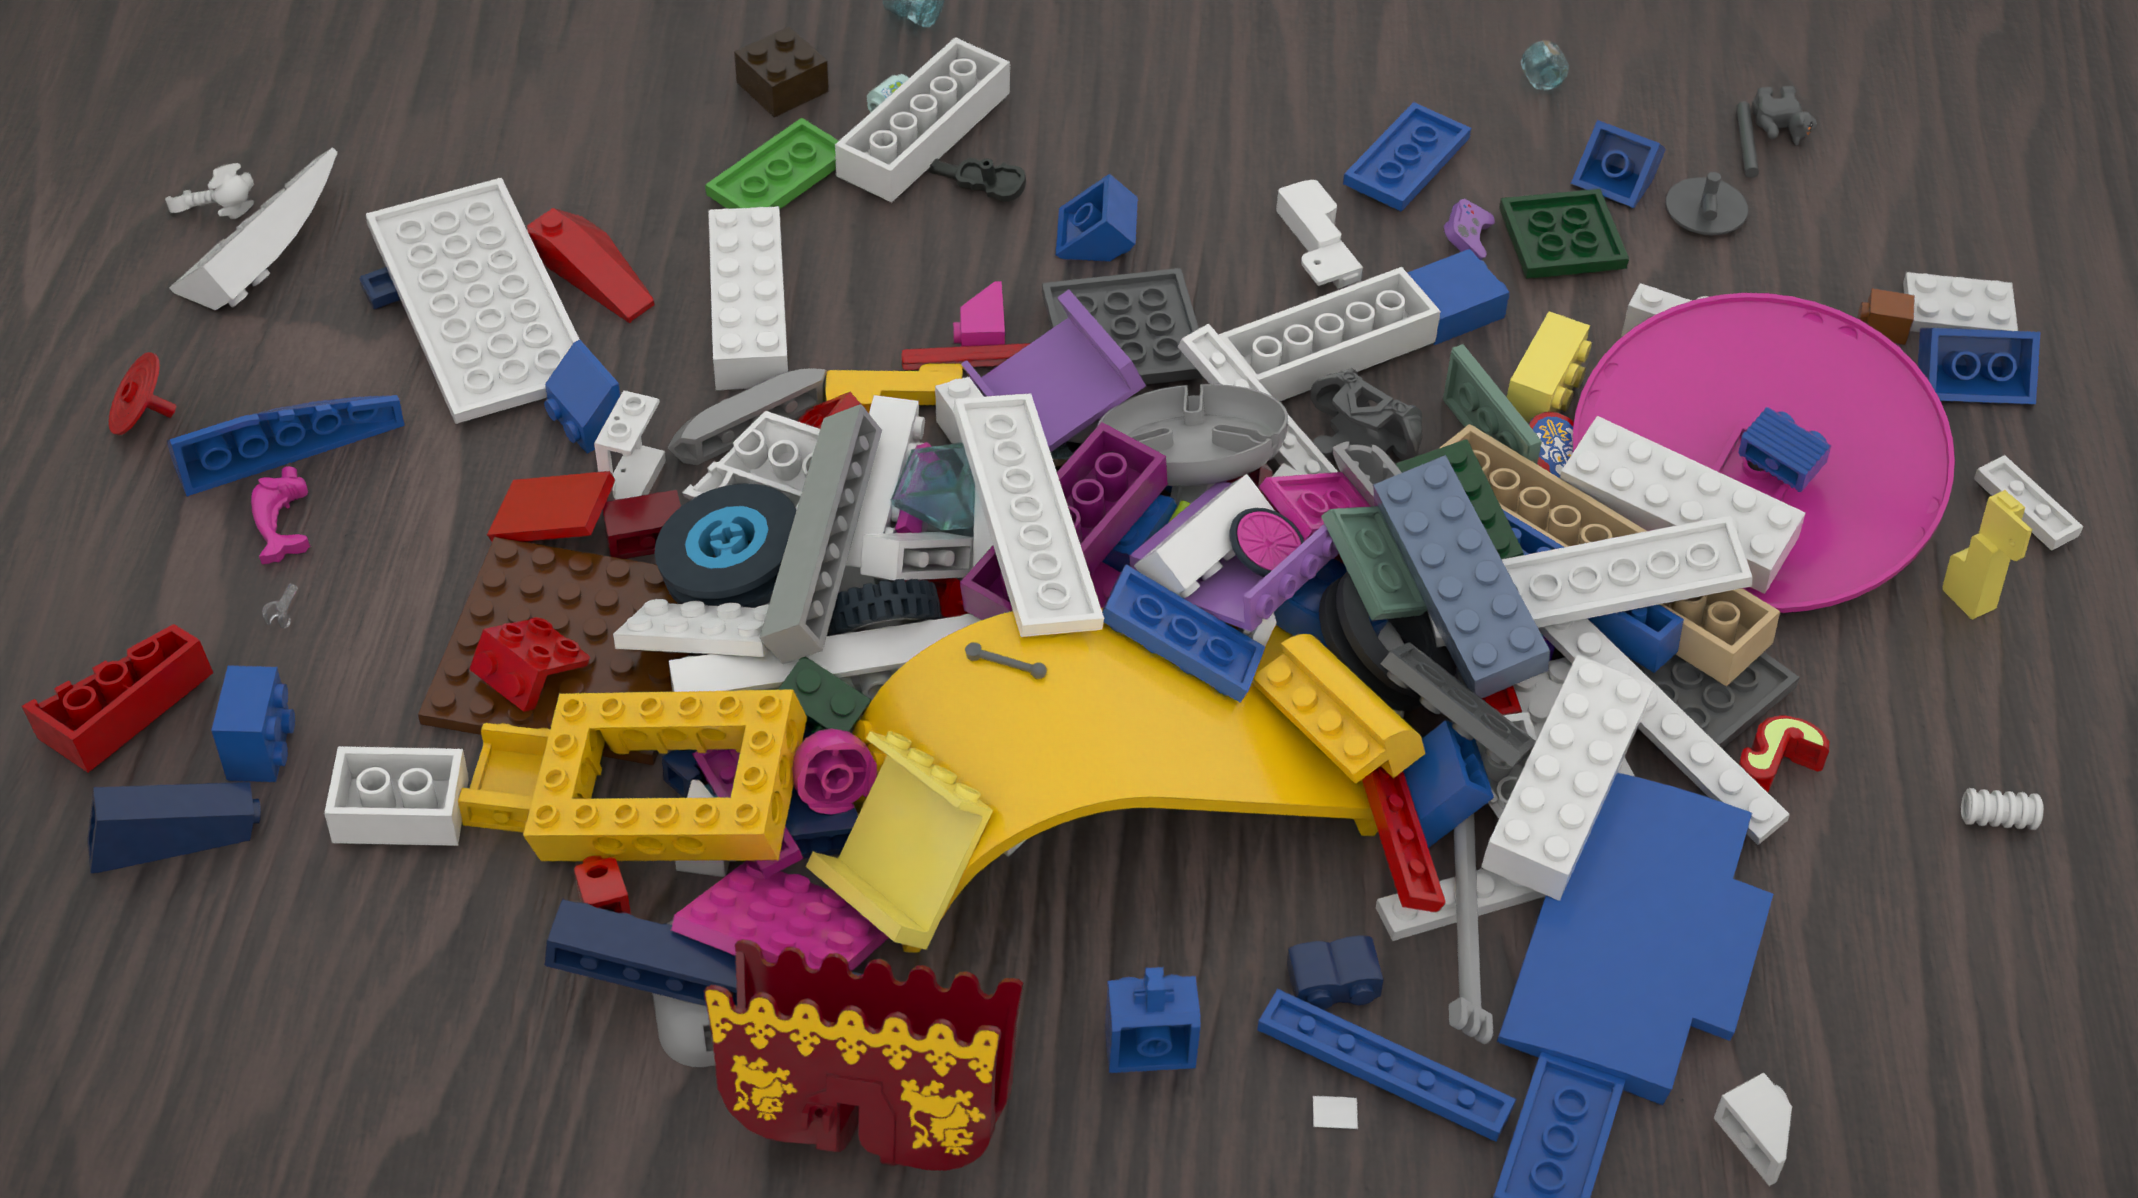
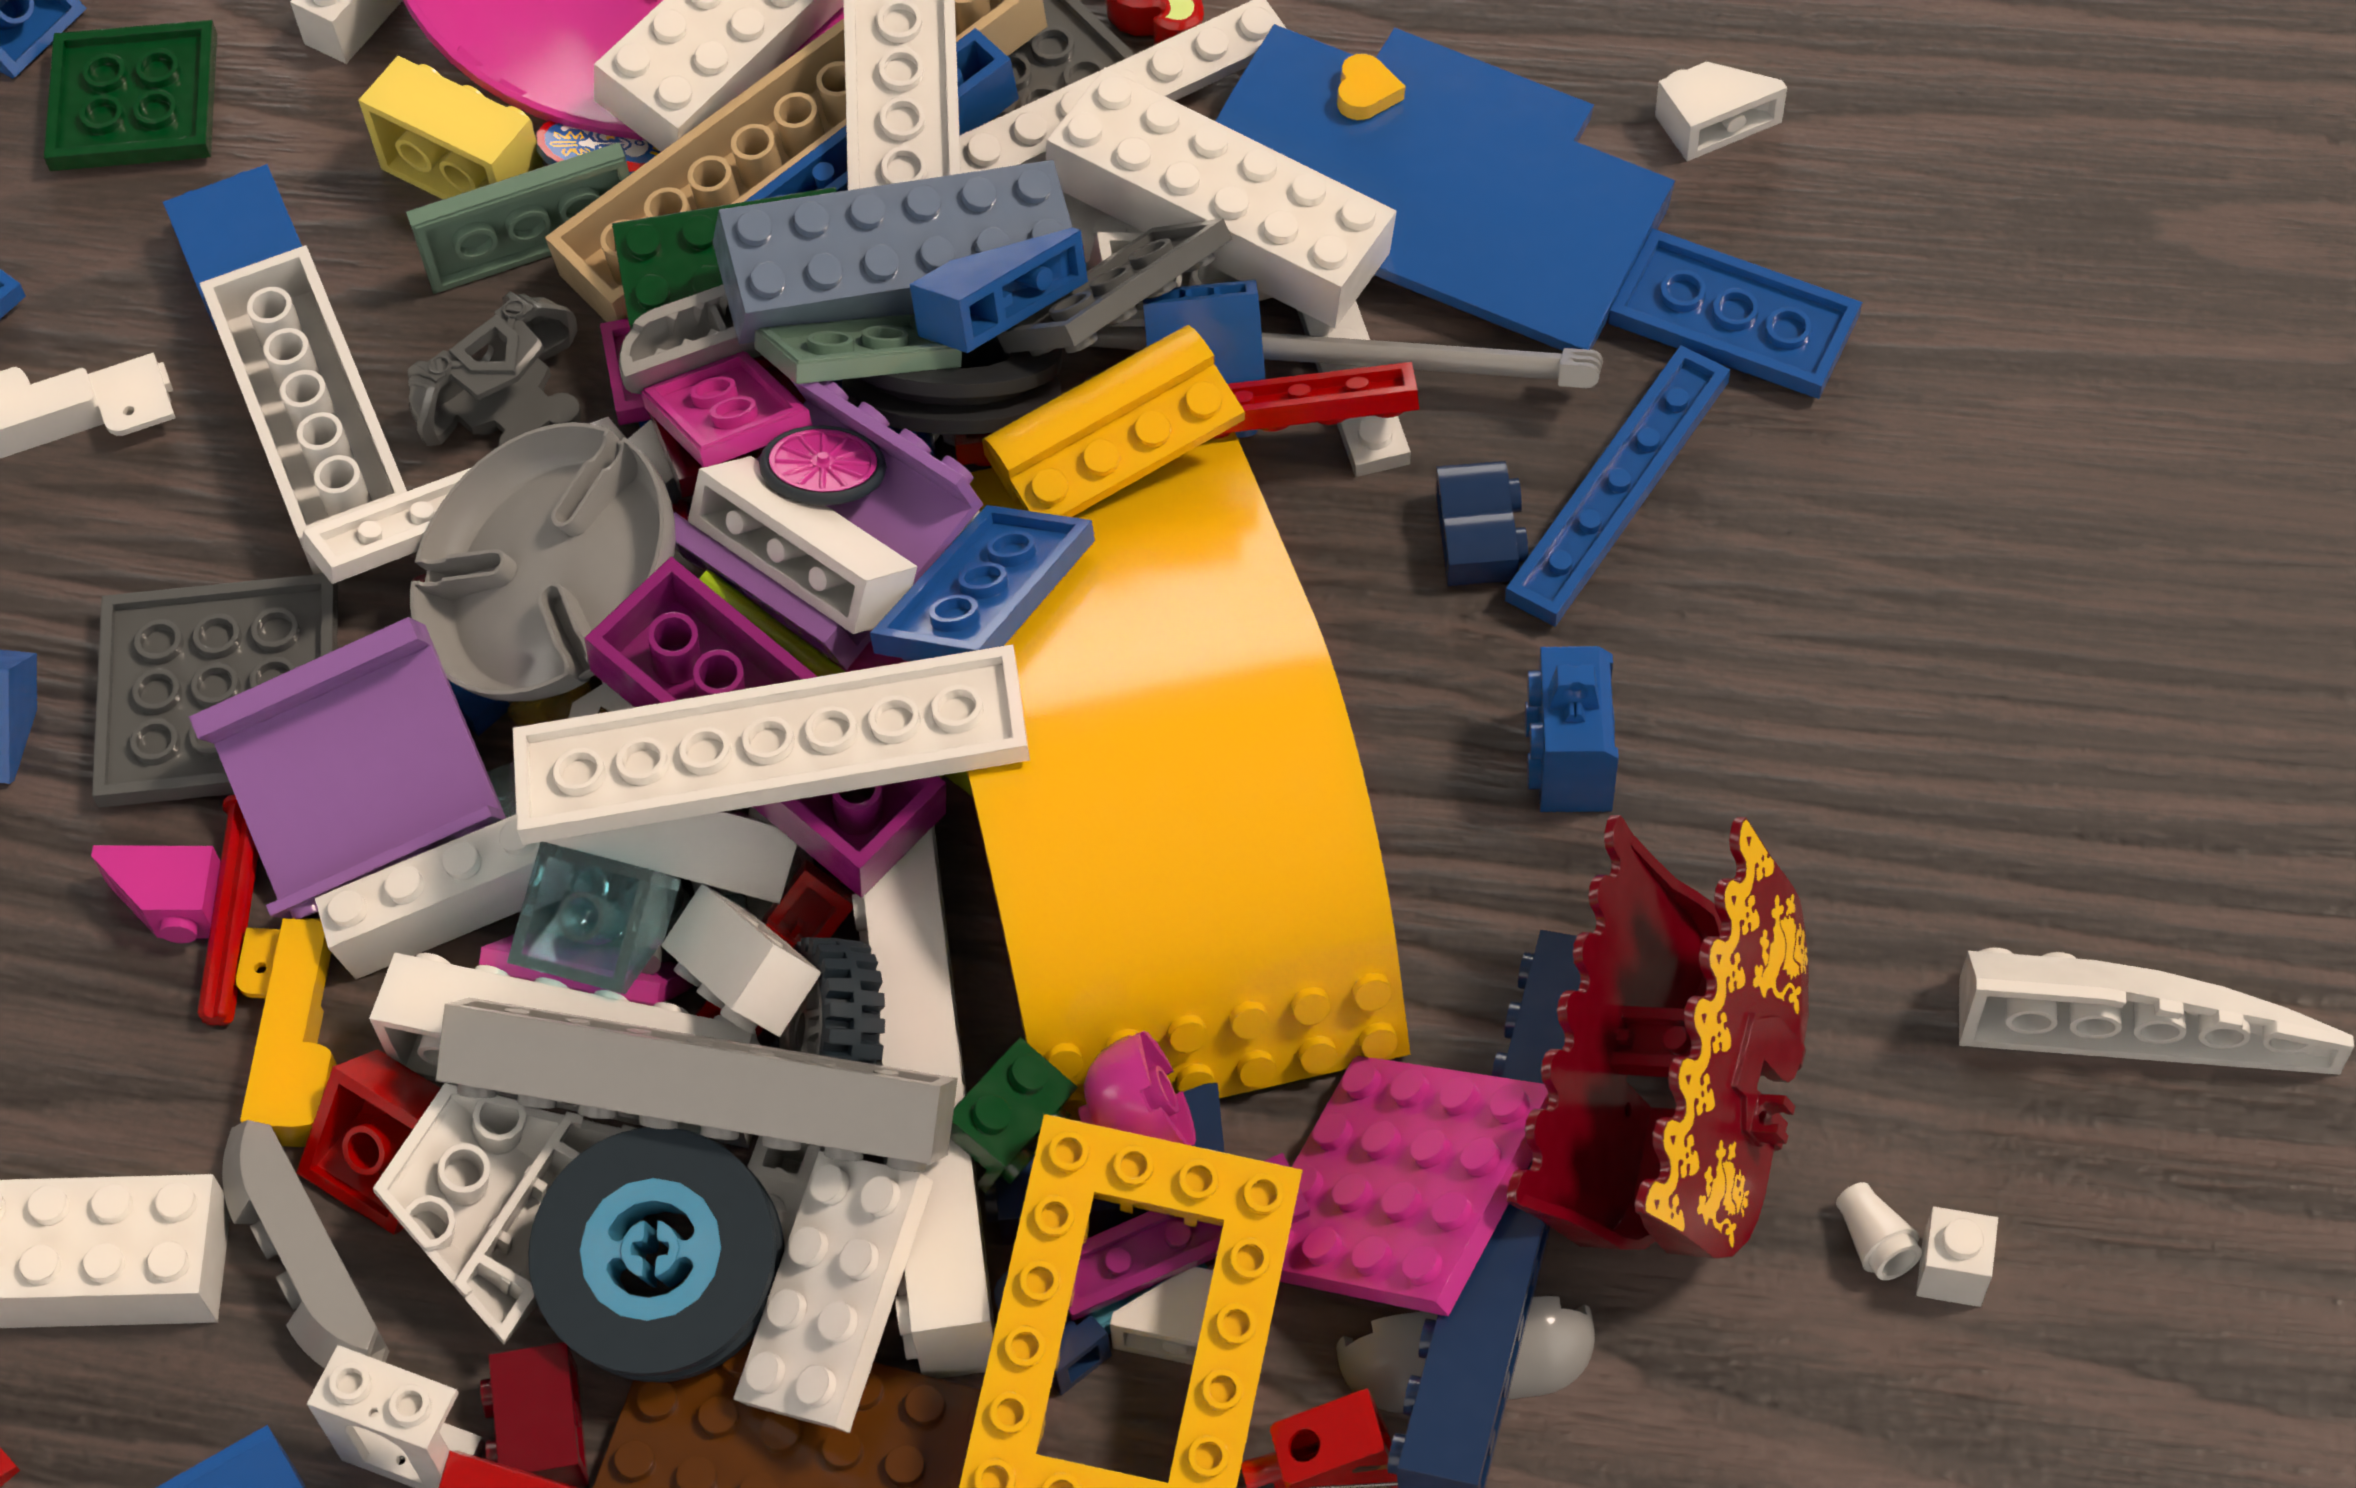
camera: 80 degrees left, 10 degrees up
(906, 844) = (1303, 994): light yellow panel -> none
(975, 652) = (1042, 828): dark grey hinge -> none
(1335, 1112) = (1677, 554): white sticker -> none
(1430, 626) = (996, 289): none -> blue slope
(1466, 225) = (99, 215): medium lavender piece -> none
(1700, 869) = (1367, 87): none -> yellow tile

